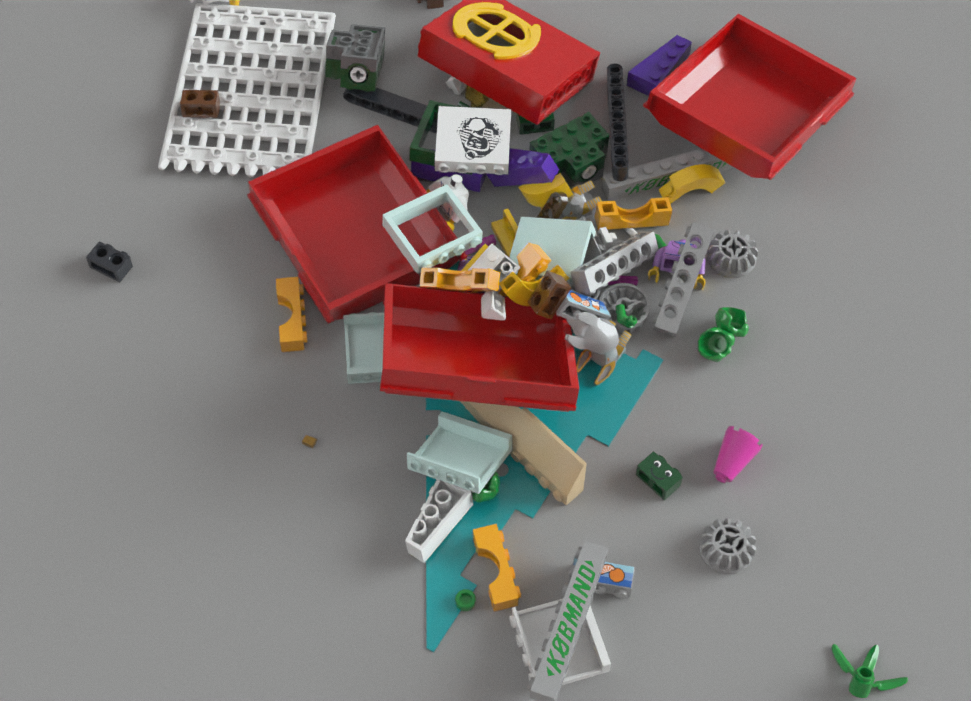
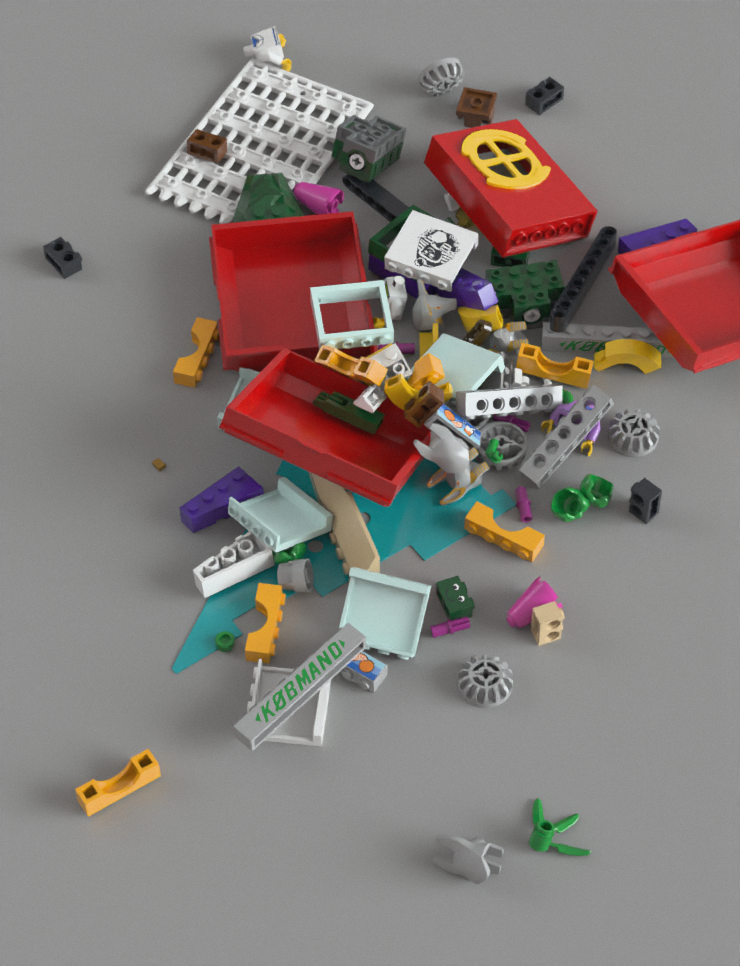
camera: 25 degrees right, 5 degrees down
(284, 139) = (266, 198): none -> dark green wedge
(333, 121) = (318, 197): none -> dark pink cone
(391, 456) = (214, 501): none -> dark purple wedge
(472, 324) = (344, 409): none -> dark green hinge
(493, 197) = (430, 309): none -> light grey piece
(503, 508) = (296, 575): none -> light grey piece
(607, 513) = (386, 611): none -> light aqua panel
(646, 390) = (524, 543): none -> light orange arch
(668, 504) = (450, 626): none -> magenta axle
(671, 357) = (523, 504): none -> magenta axle
(757, 468) = (547, 623): none -> tan brick
(780, 315) = (645, 500): none -> black brick

